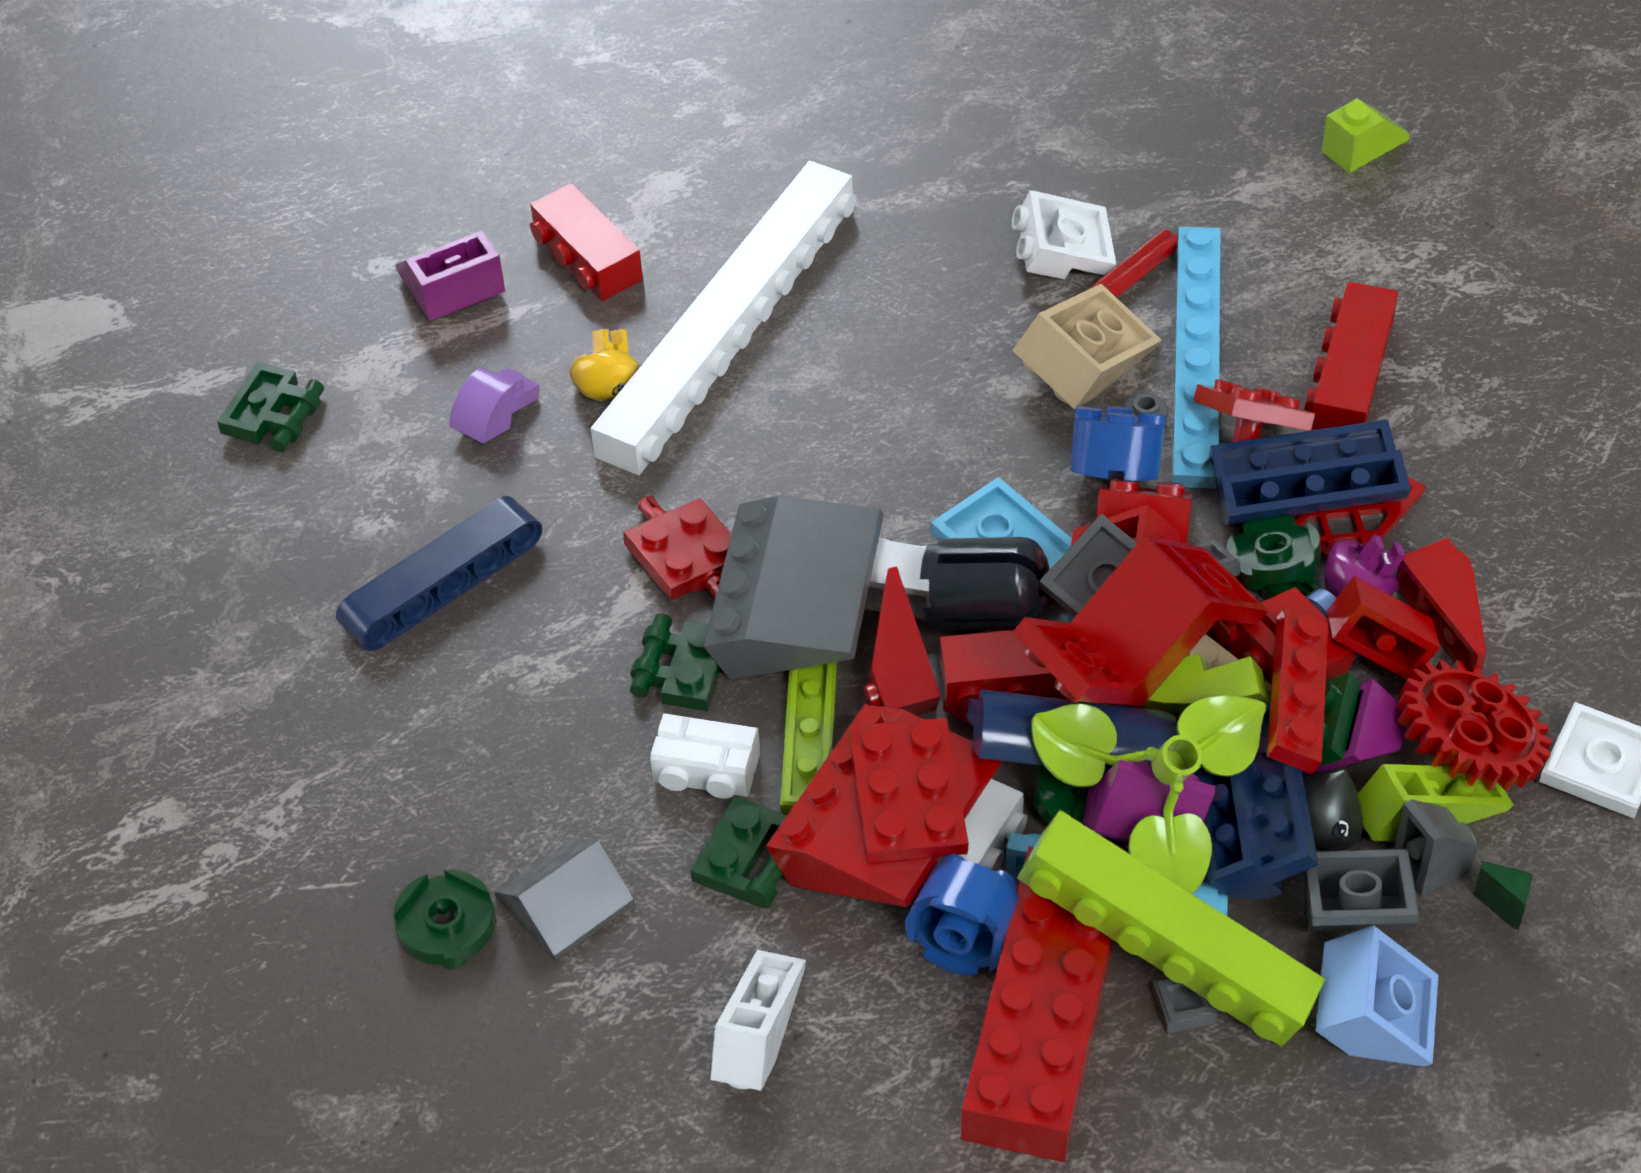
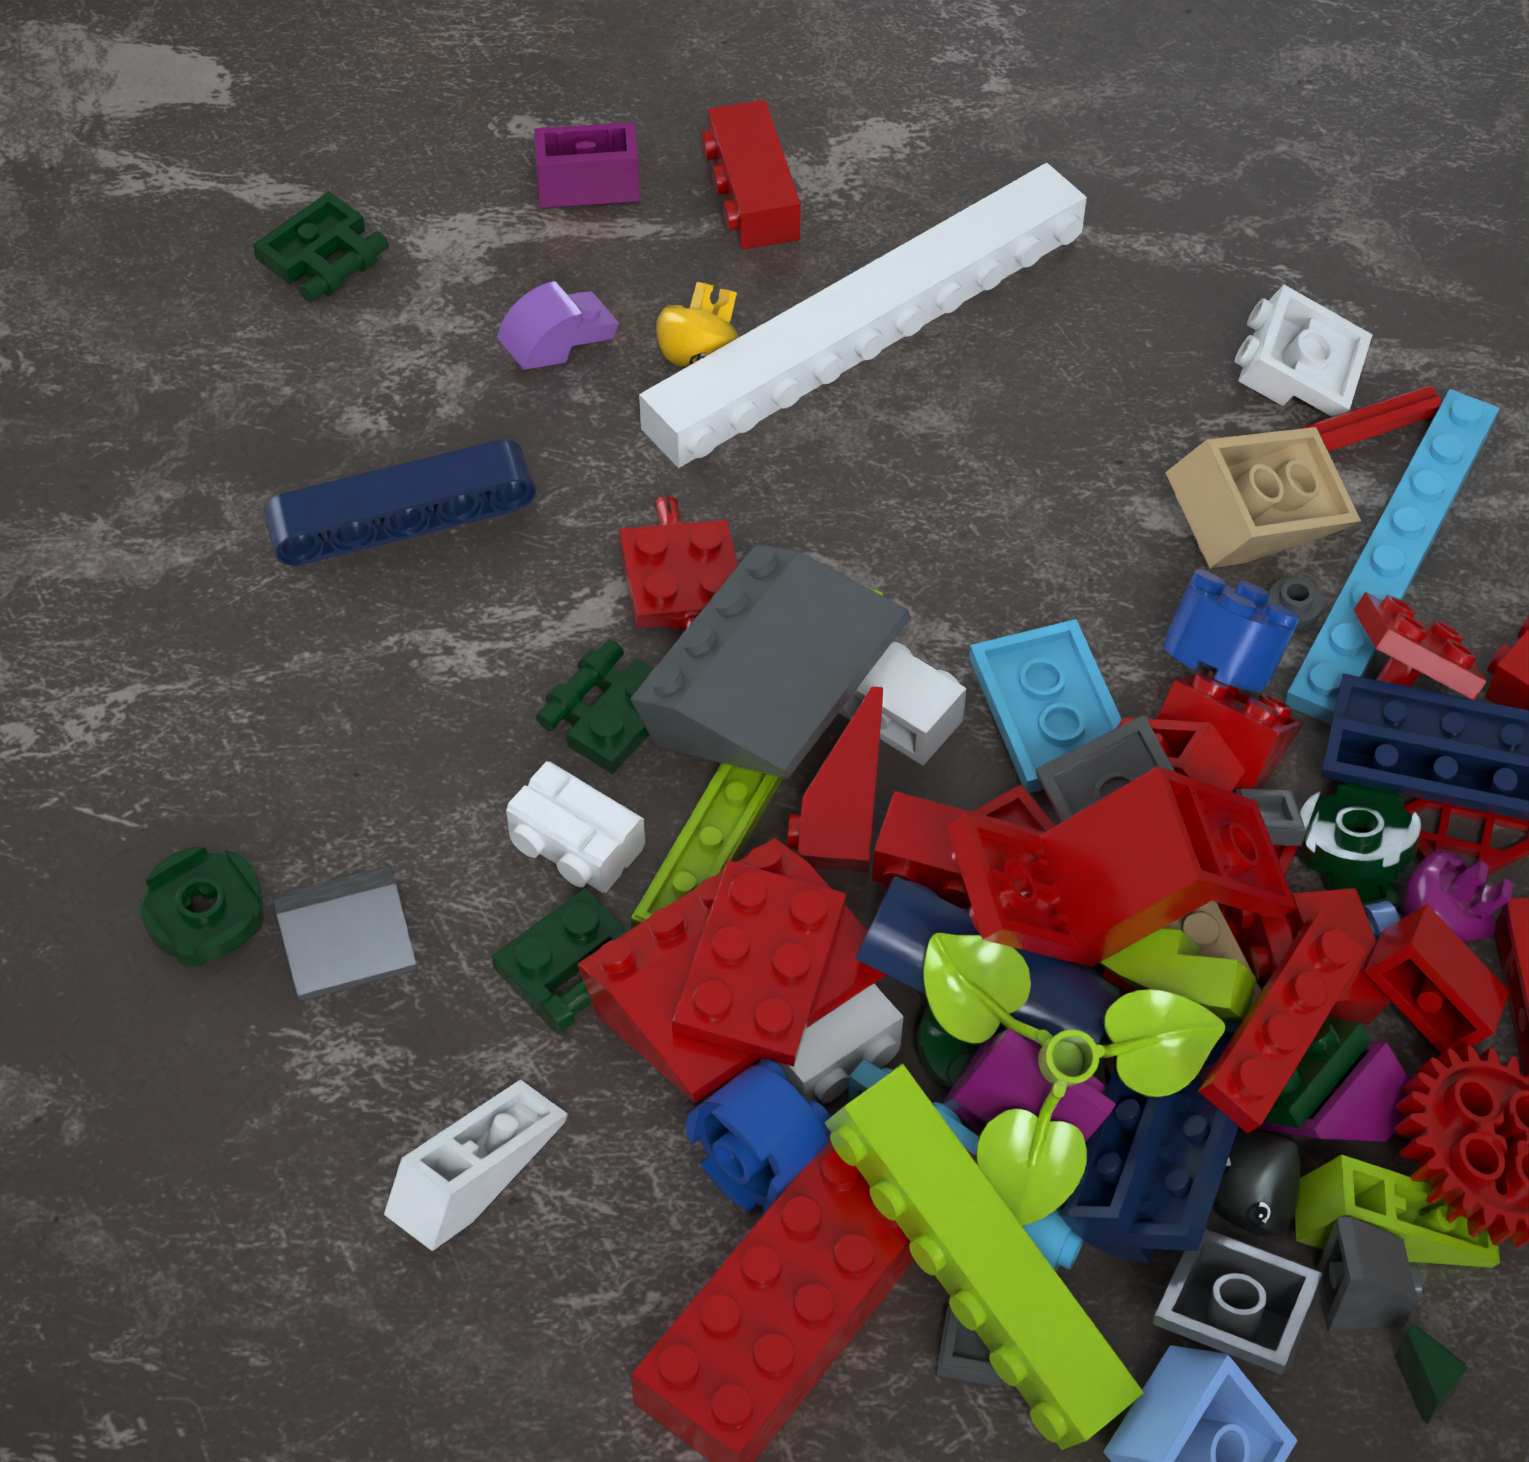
camera: 20 degrees right, 5 degrees up
(984, 583) = (980, 744): black cylinder -> none

